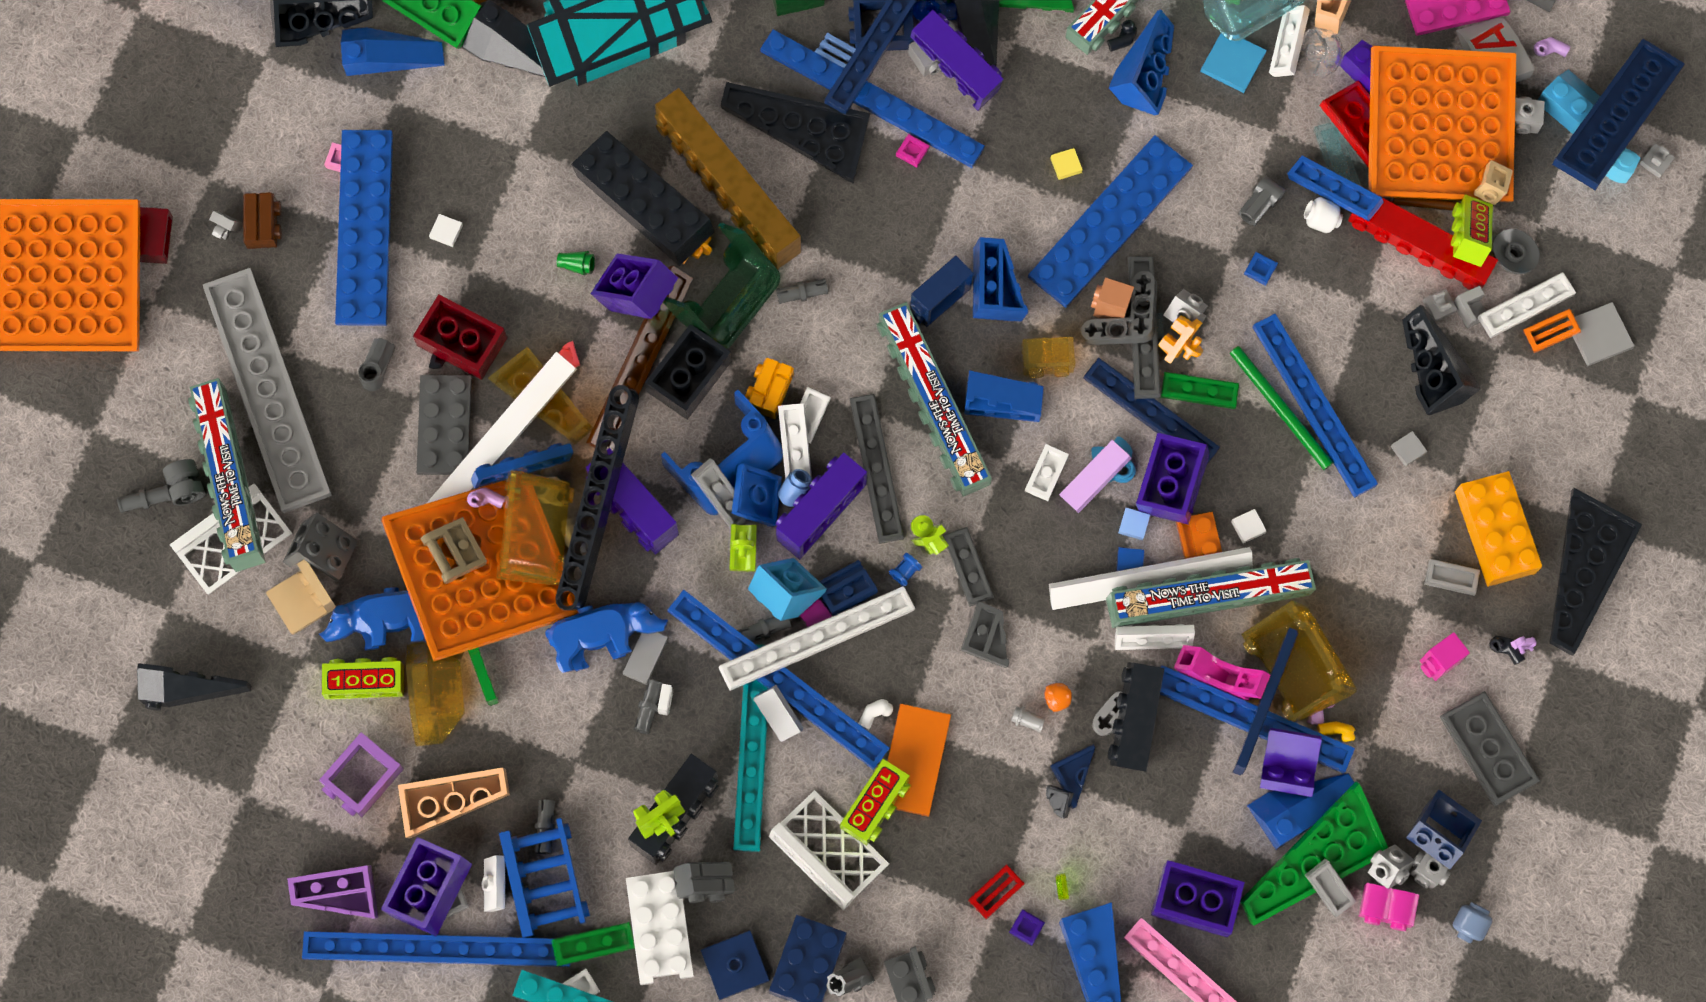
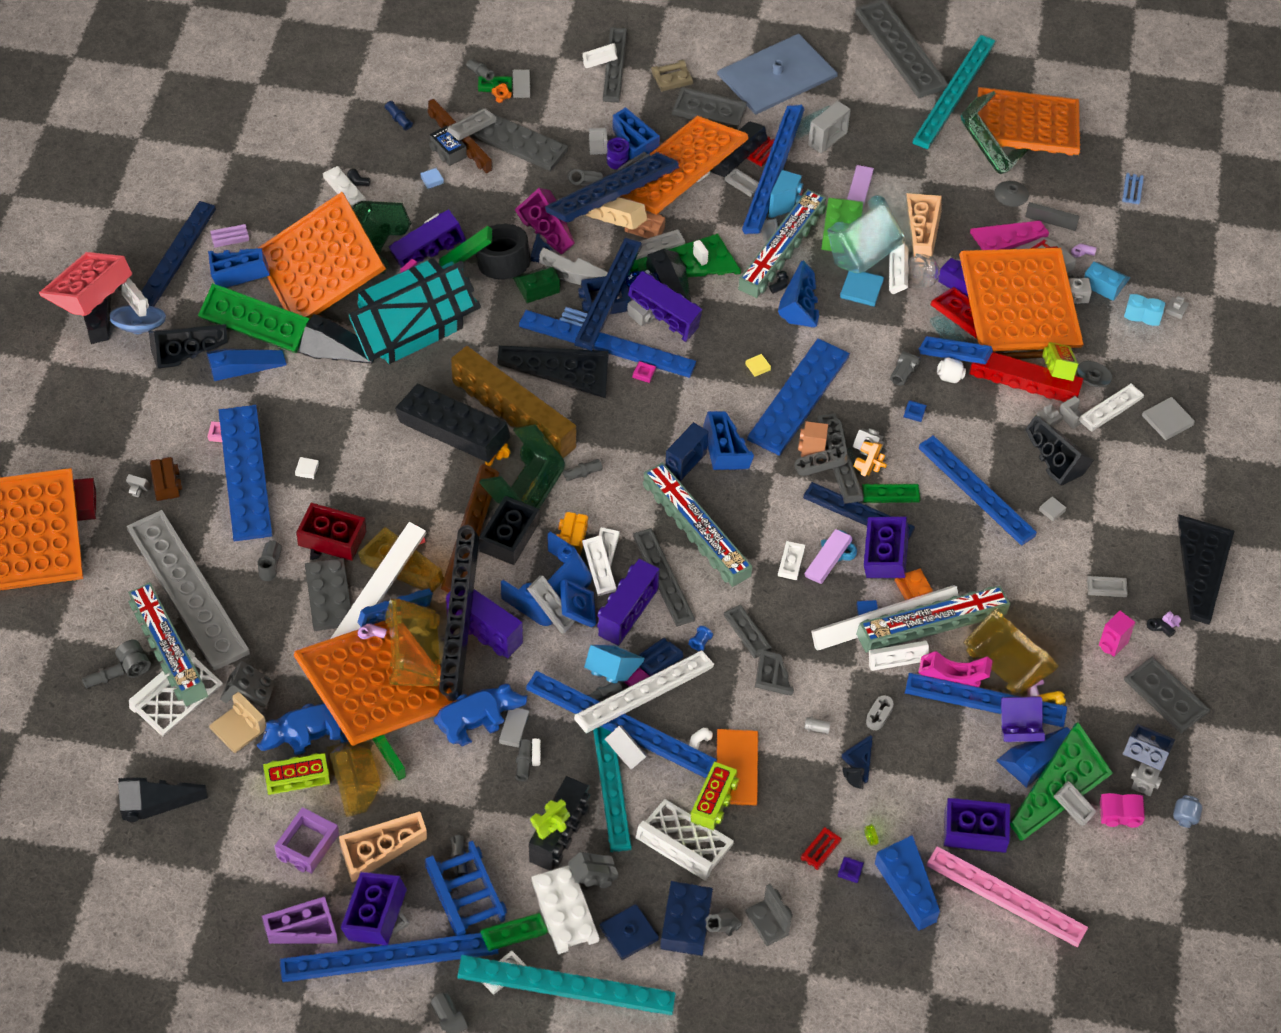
camera: 10 degrees left, 20 degrees down
(460, 544) = (359, 662): dark tan plate -> none
(494, 883) = (426, 901): white plate -> none
(578, 262) = (411, 473): green cone -> none
(634, 285) = (458, 476): dark purple brick -> none
(743, 547) = (575, 641): lime hips -> none
(793, 486) = (603, 593): medium blue brick -> none
(928, 535) = (714, 612): lime hips -> none
(1002, 398) = (747, 514): blue wedge -> none
(1048, 356) = (774, 485): clear yellow brick -> none
(1058, 696) = (836, 705): orange piece -> none
(1134, 523) = (864, 585): light blue tile -> none
(1136, 716) = (899, 707): black brick -> none
(1248, 526) = (949, 574): white tile -> none
(1265, 702) = (992, 685): dark blue tile -> none
(1281, 408) = (953, 496): green piece -> none
(1391, 866) = (1116, 779): light grey brick -> none
(1494, 183) = (1067, 331): tan bracket -> none
(1498, 528) = (1132, 548): light orange brick -> none
(1538, 347) = (1122, 429): orange tile -> none
(1618, 114) = (1142, 278): dark blue plate -> none

